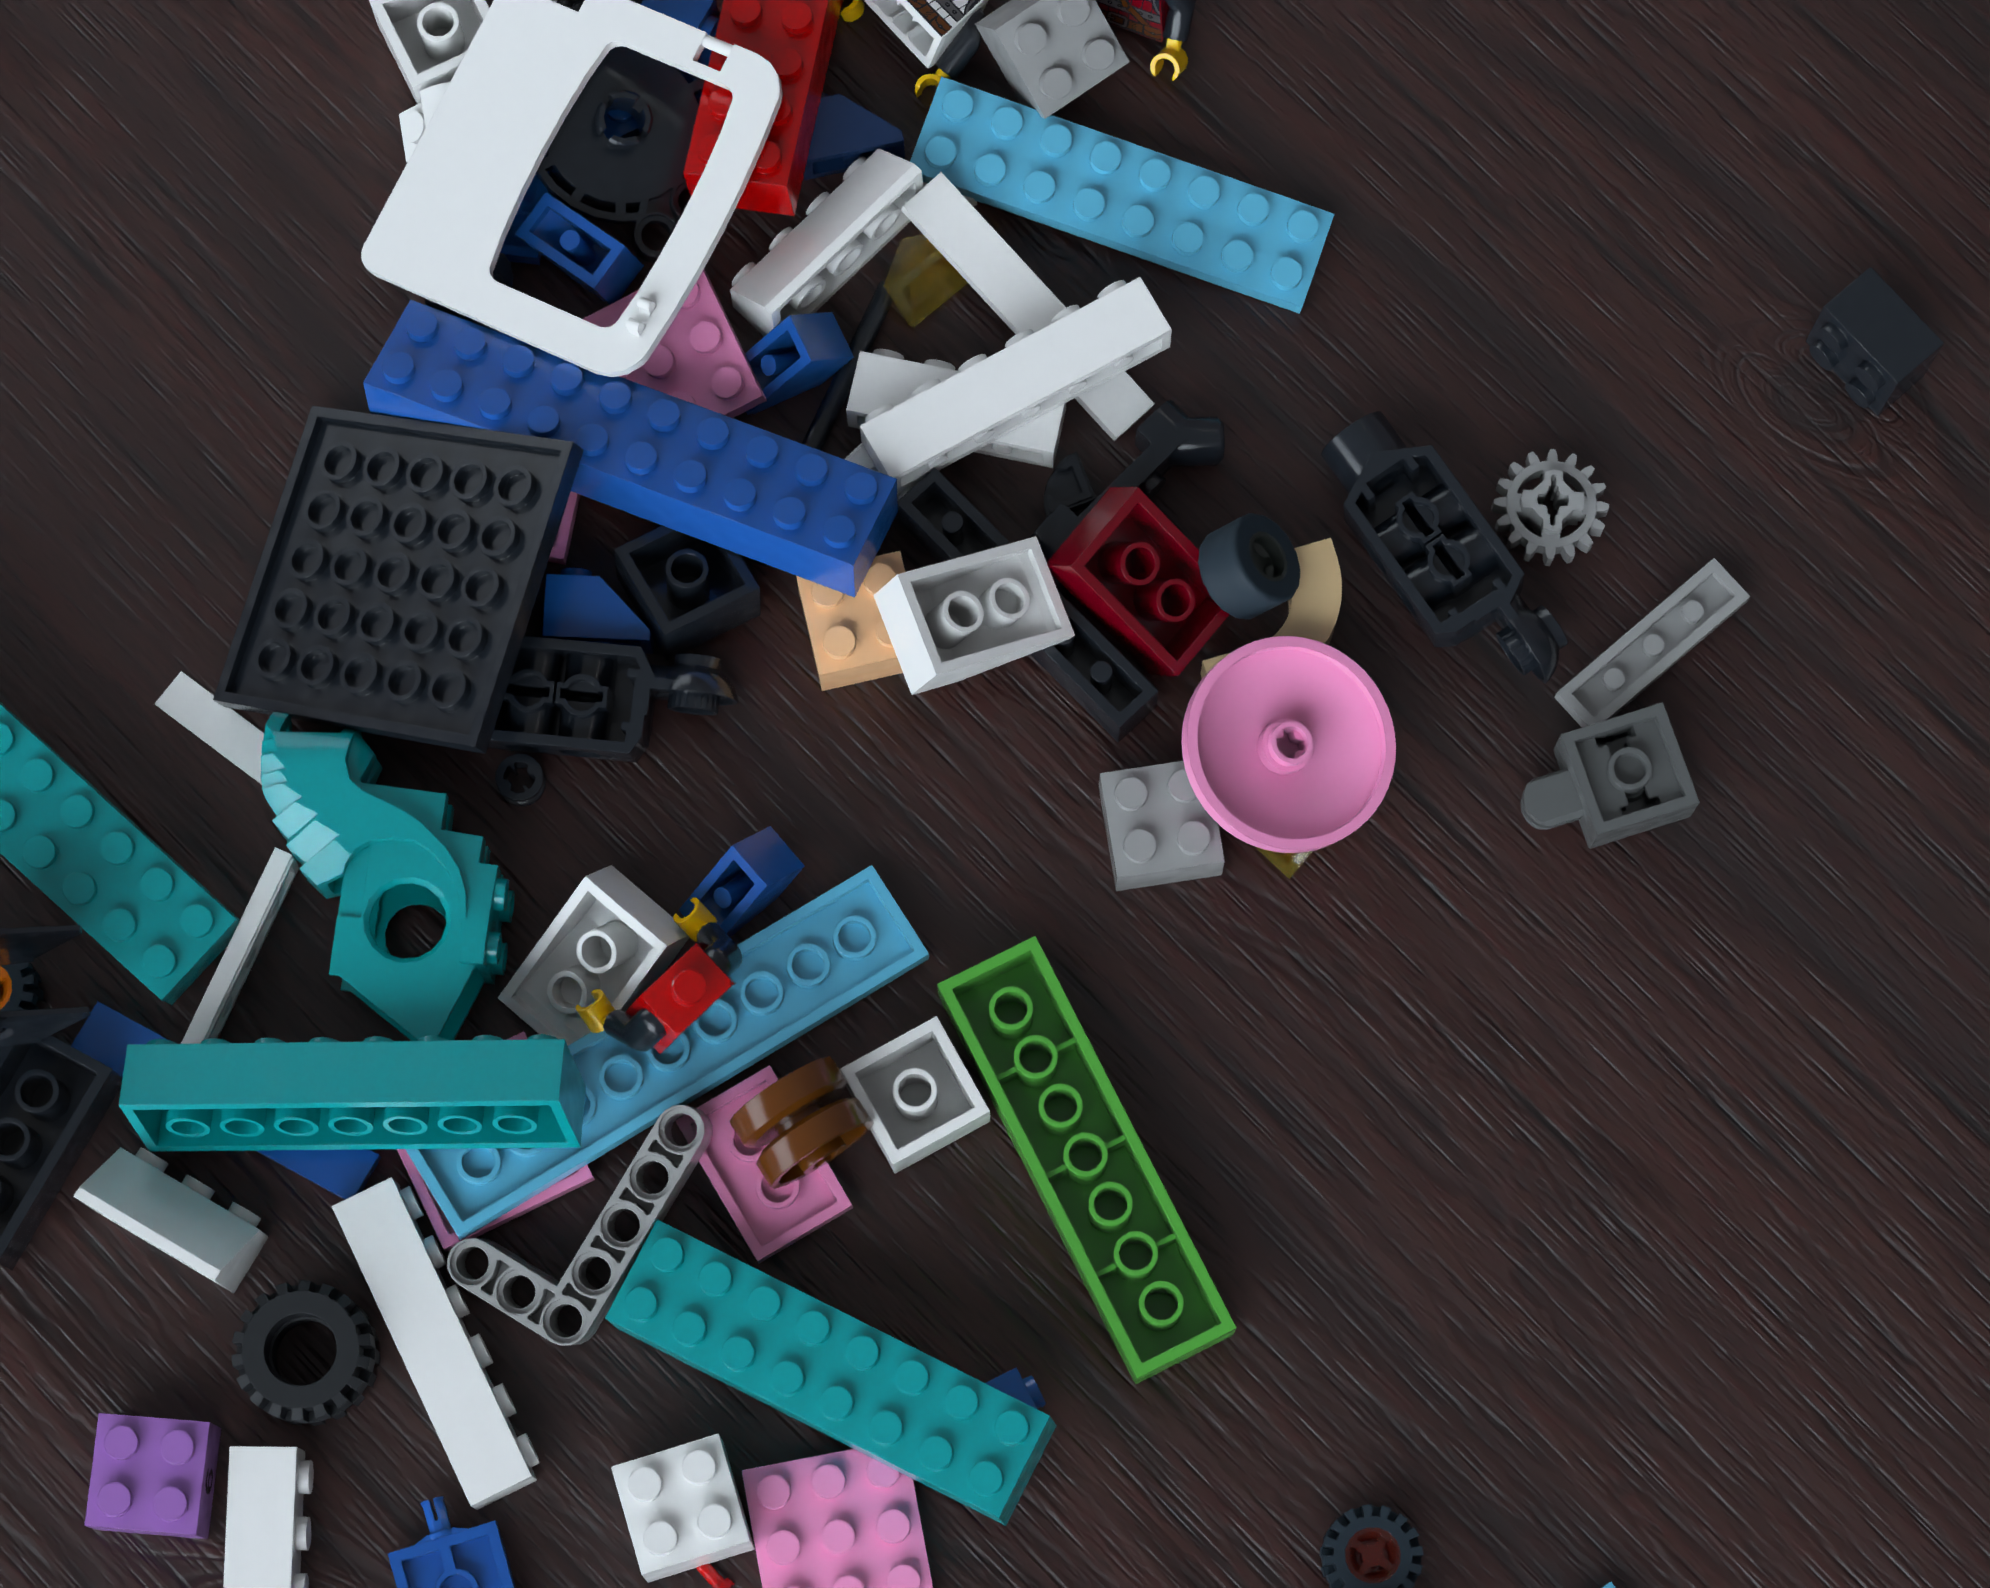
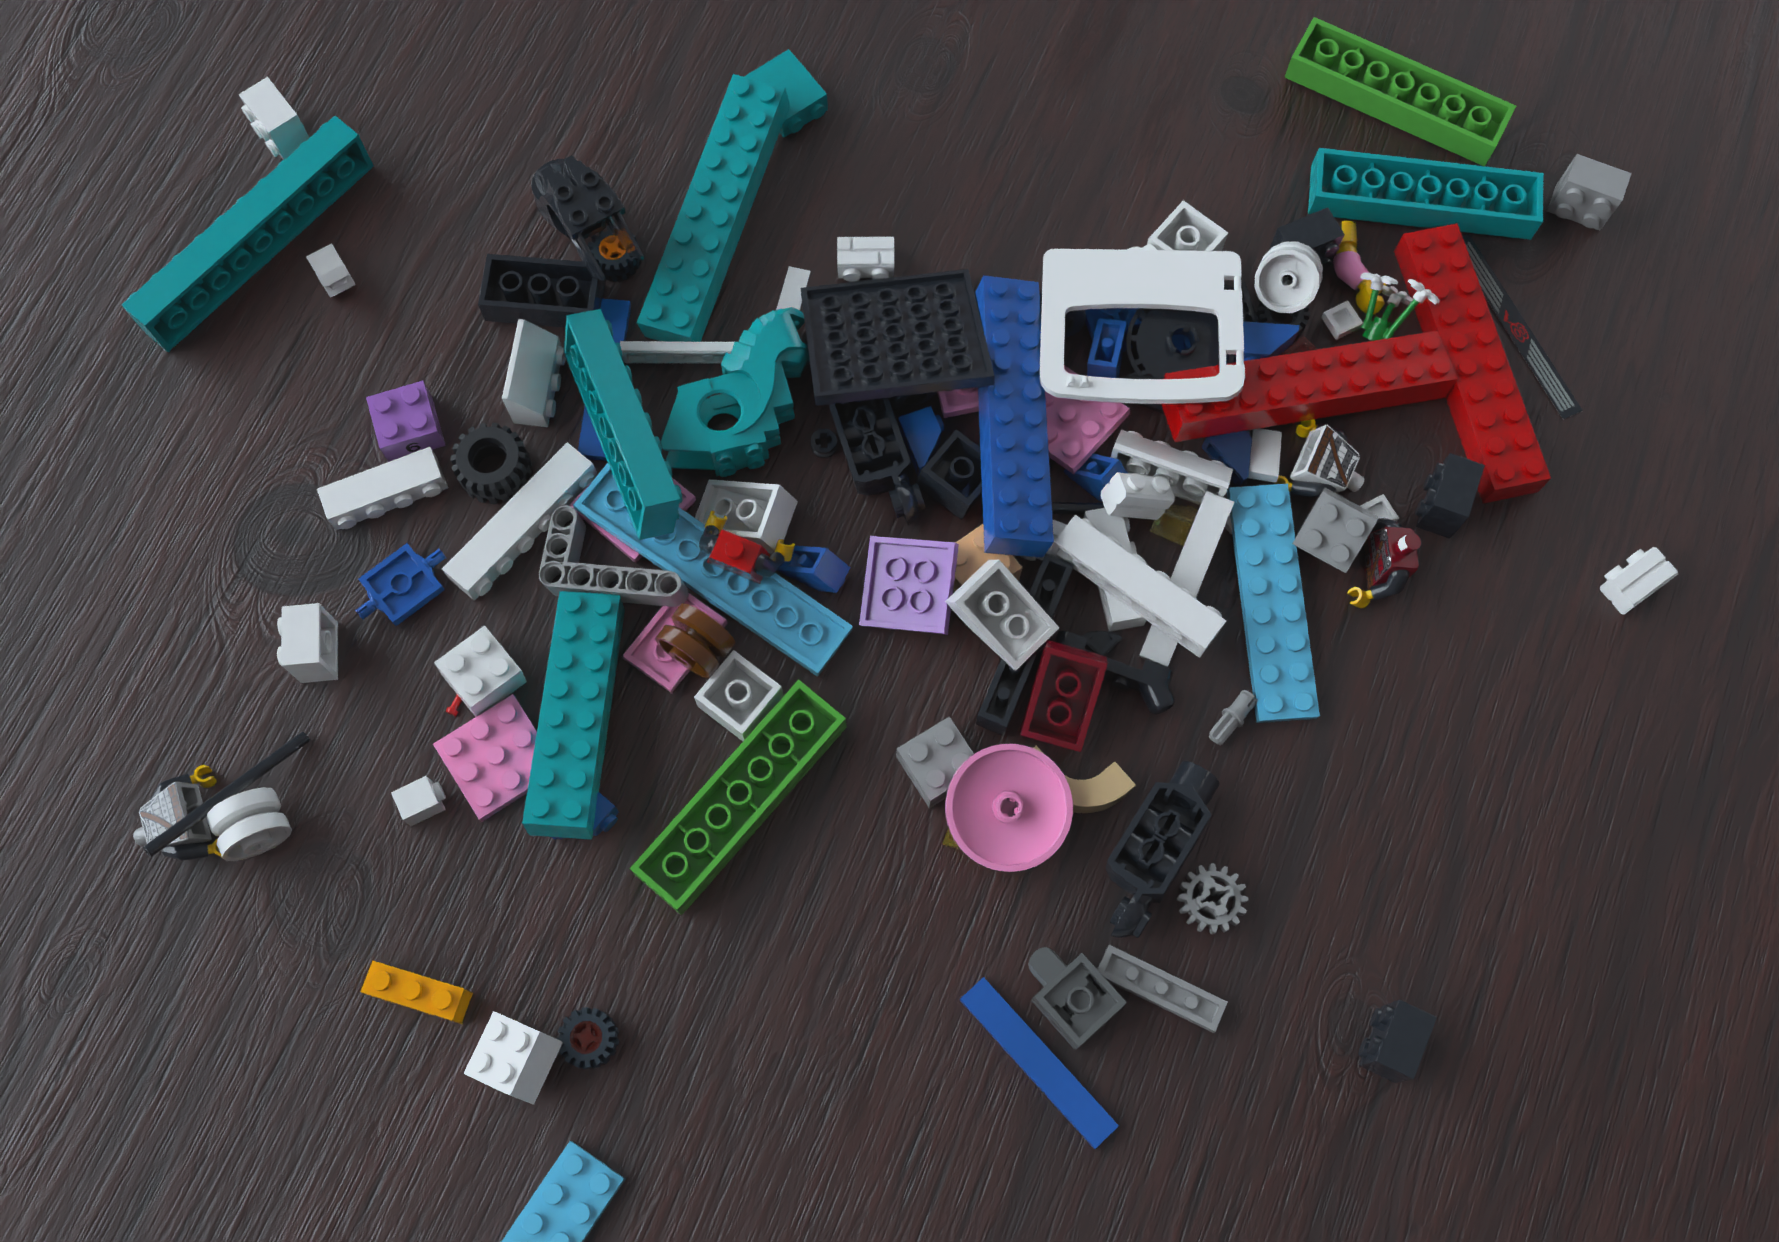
camera: 65 degrees right, 5 degrees down
(210, 566) = (865, 257): none -> white brick
(847, 743) = (908, 584): none -> medium lavender plate
(863, 316) = (1137, 496): none -> white brick
(872, 86) = (1265, 455): none -> white tile
(1249, 566) = (1096, 745): black wheel -> none
(1279, 343) = (1232, 717): none -> light grey axle
(1686, 879) = (1039, 1063): none -> blue tile

